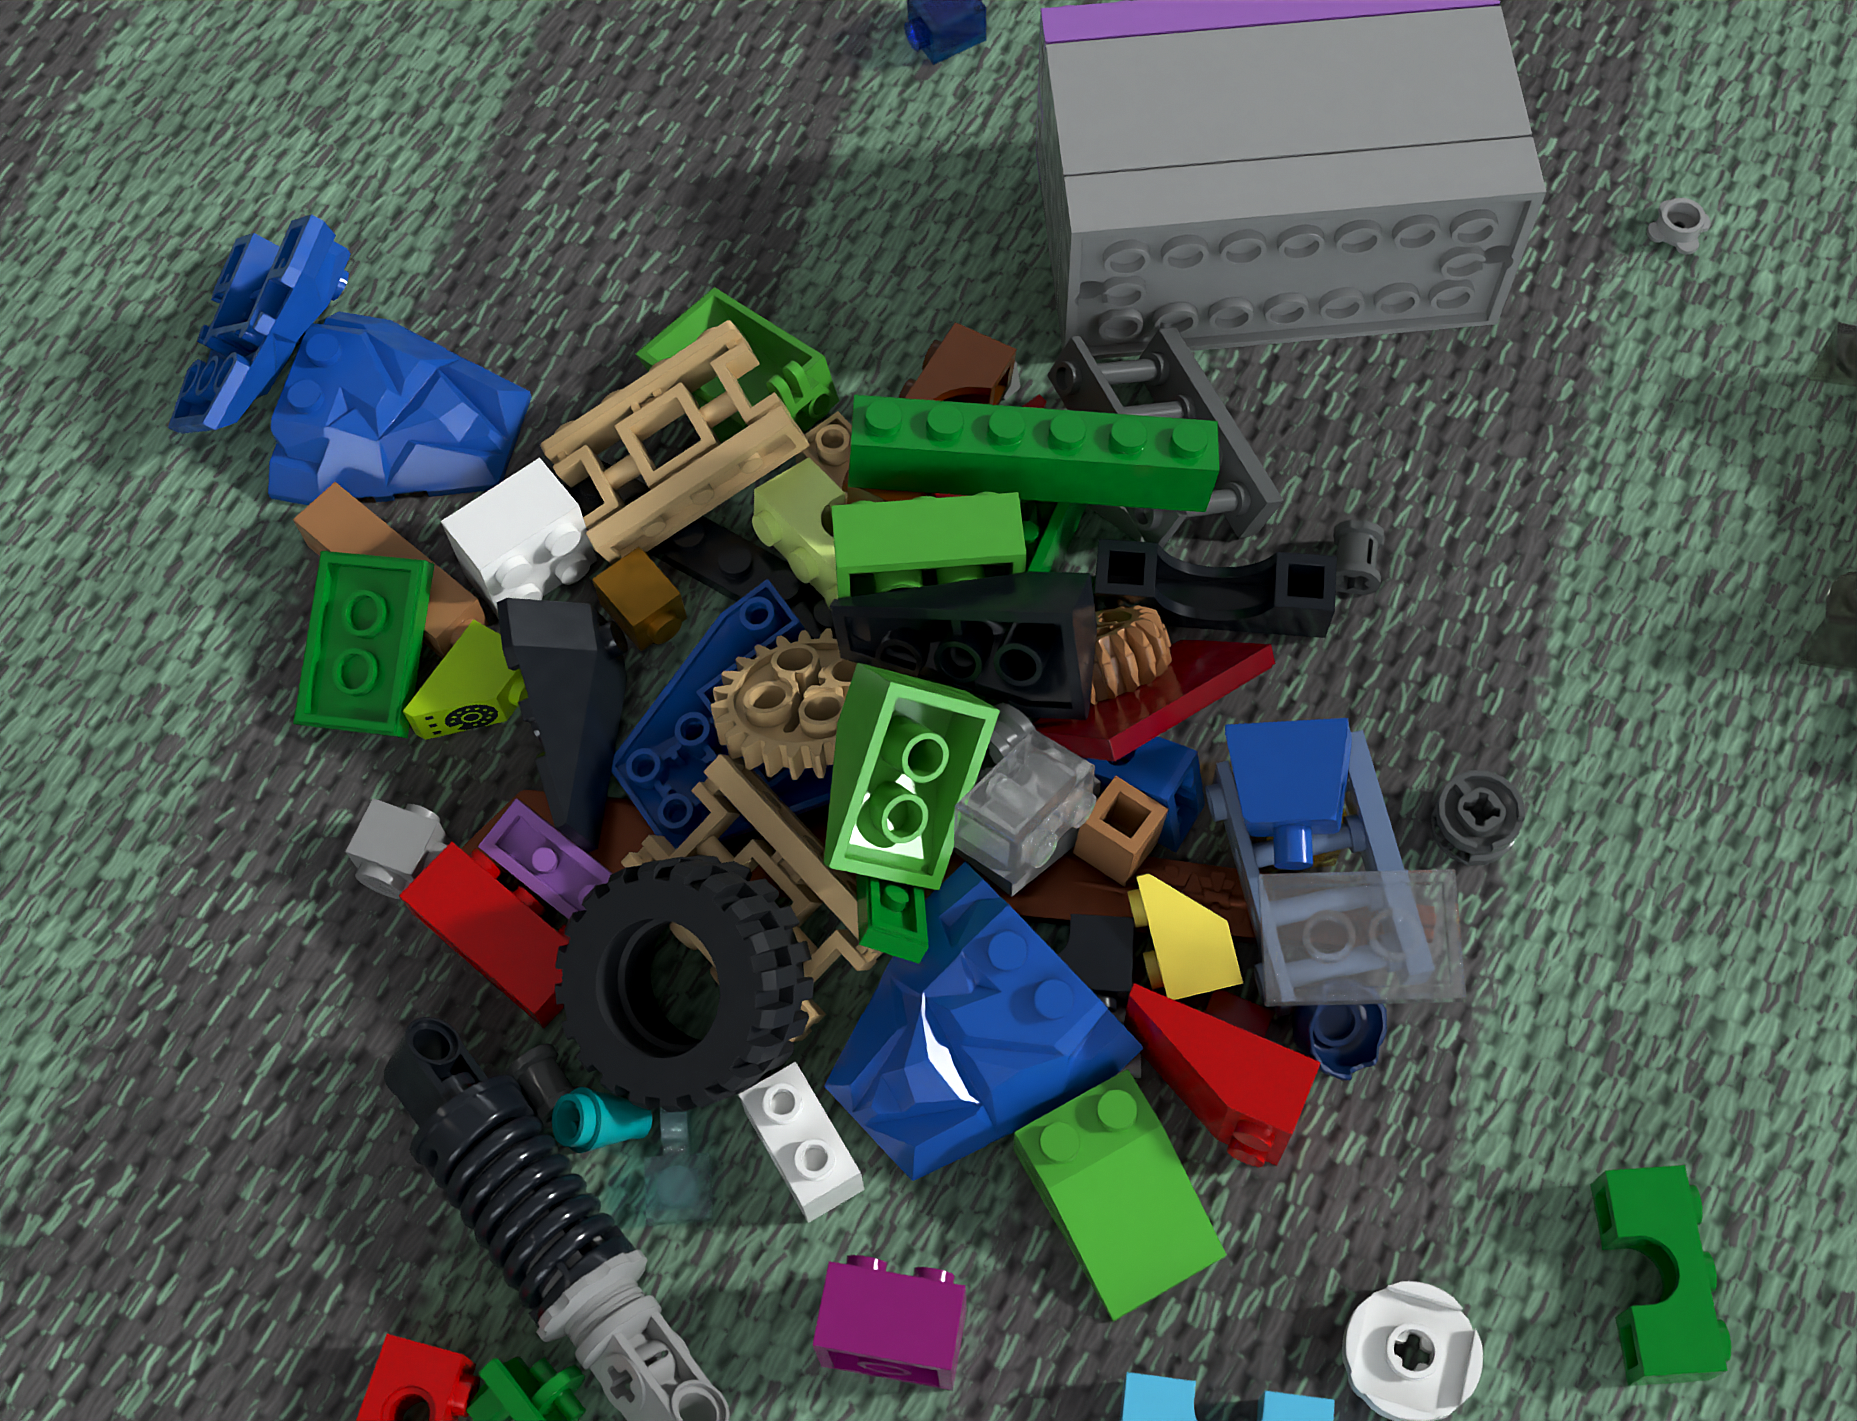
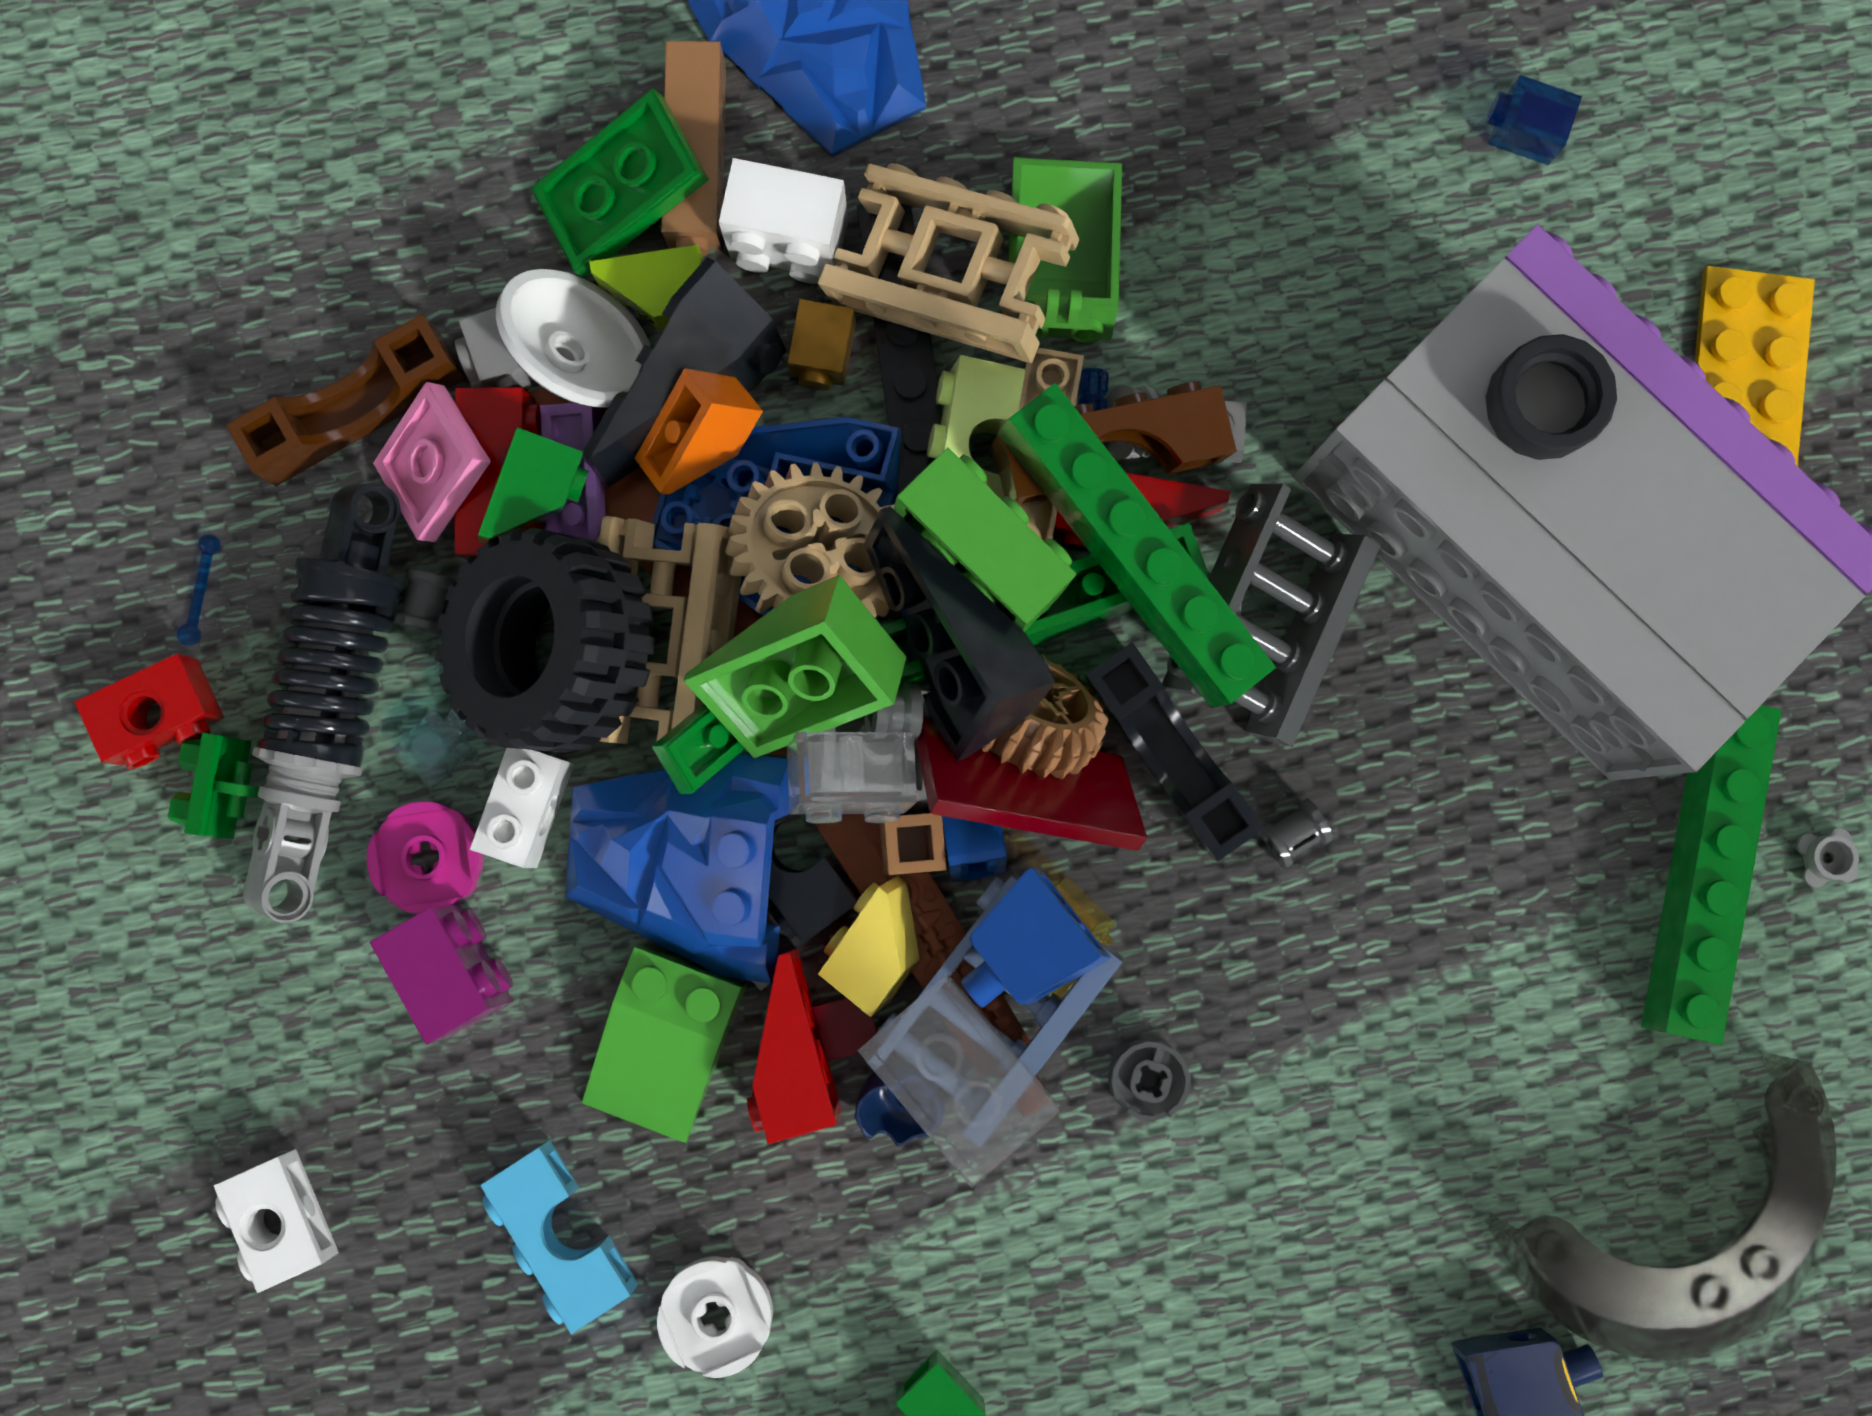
camera: 45 degrees right, 20 degrees up
(302, 1065) = (301, 430): none -> reddish brown arch
(372, 1330) = (189, 633): none -> clear blue hinge
(439, 967) = (431, 462): none -> bright pink tile
(452, 773) = (570, 336): none -> white dish
(540, 886) = (532, 484): none -> green slope
(597, 1119) = (413, 656): teal cone -> none
(622, 729) = (697, 429): none -> orange slope
(732, 1284) = (401, 836): none -> dark pink plate
(1185, 44) = (1581, 361): none -> black tyre
(1645, 313) = (1711, 884): none -> green brick

